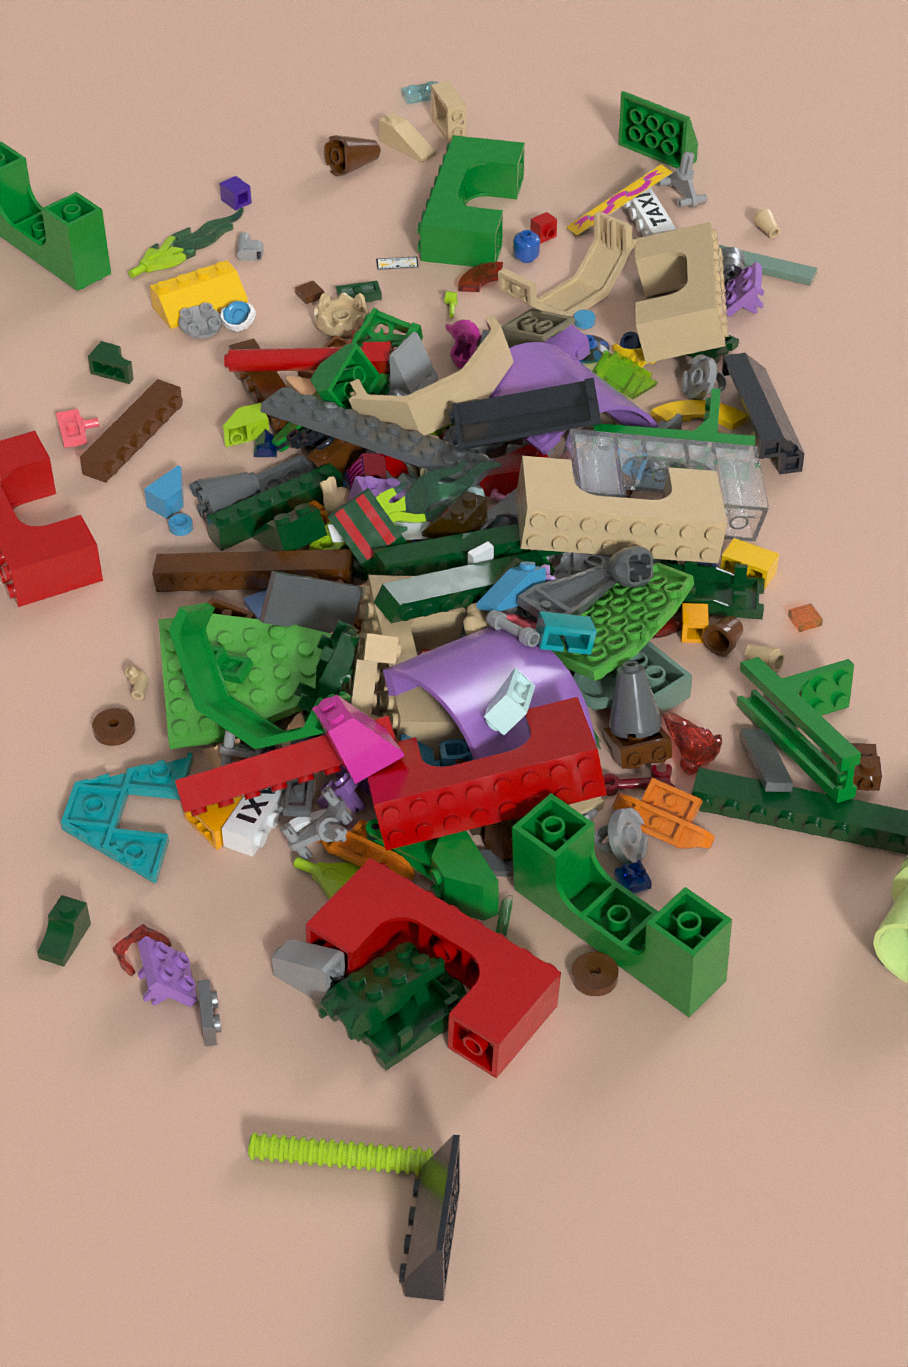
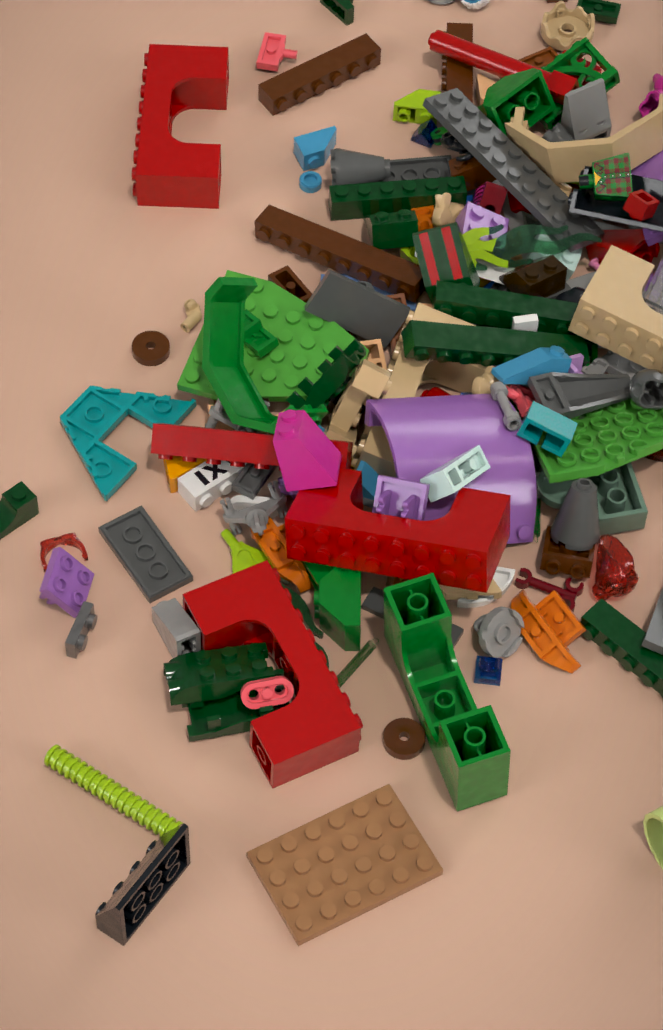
camera: 25 degrees right, 10 degrees up
(228, 915) = (145, 554): none -> dark grey tile
(441, 983) = (266, 692): none -> coral plate
(474, 740) = (401, 497): none -> medium lavender plate
(482, 406) = (609, 178): none -> torso
(524, 417) = (641, 205): none -> red plate
(613, 1117) = (344, 864): none -> medium nougat plate

